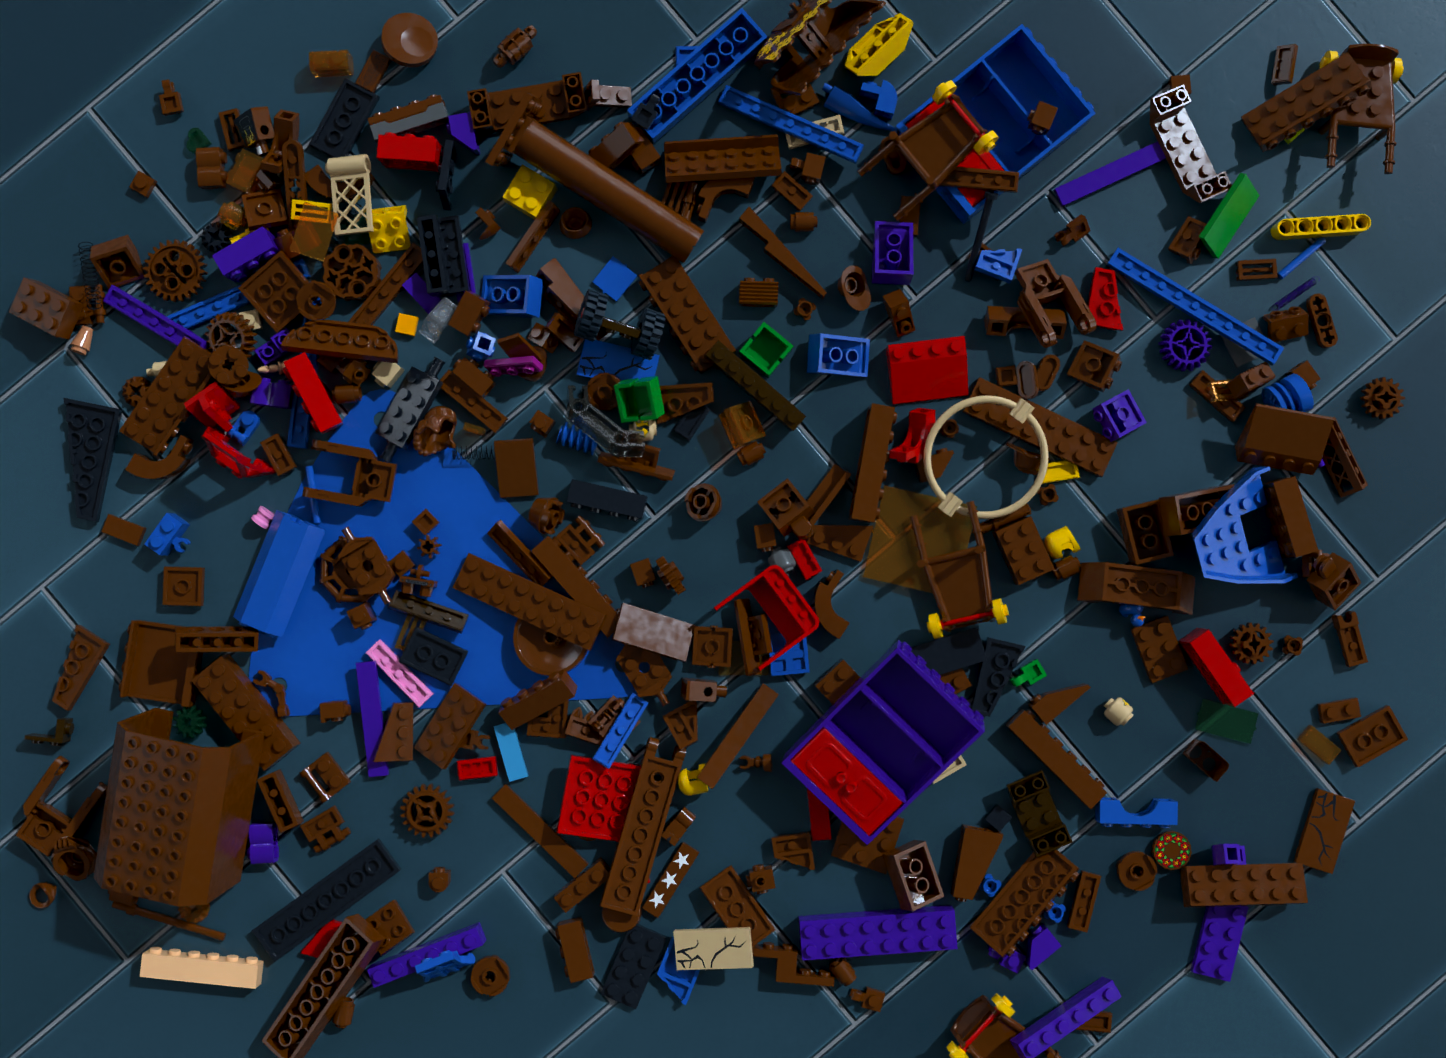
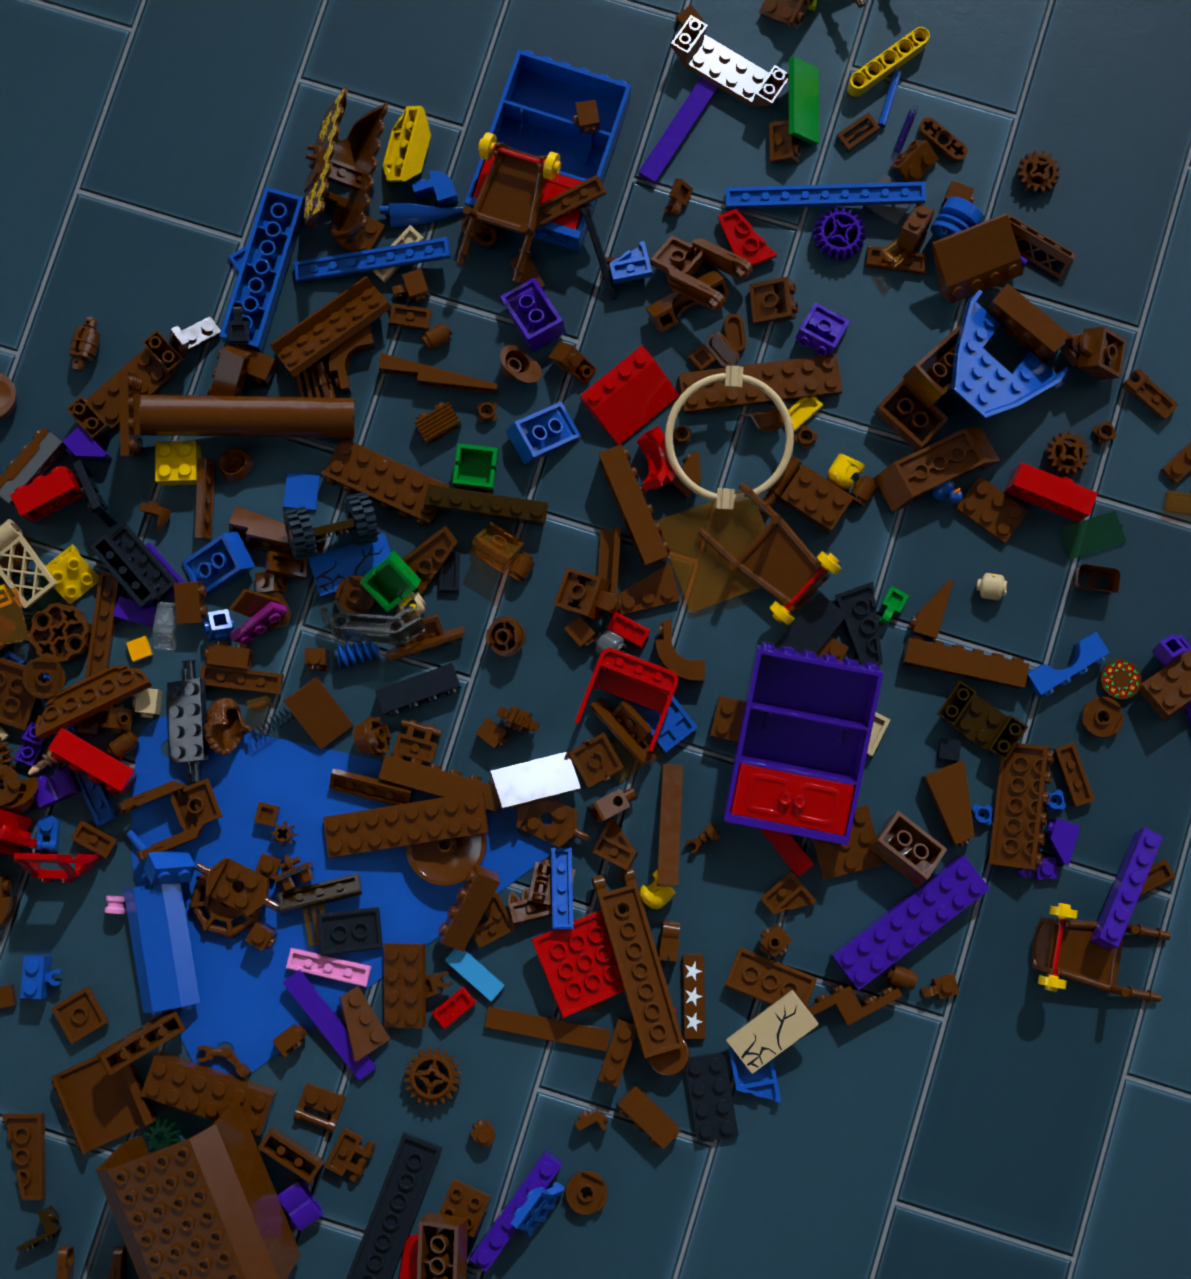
camera: 30 degrees left, 5 degrees down
(322, 516) = (169, 867): none -> blue brick
(527, 920) = (587, 1118): none -> reddish brown bracket

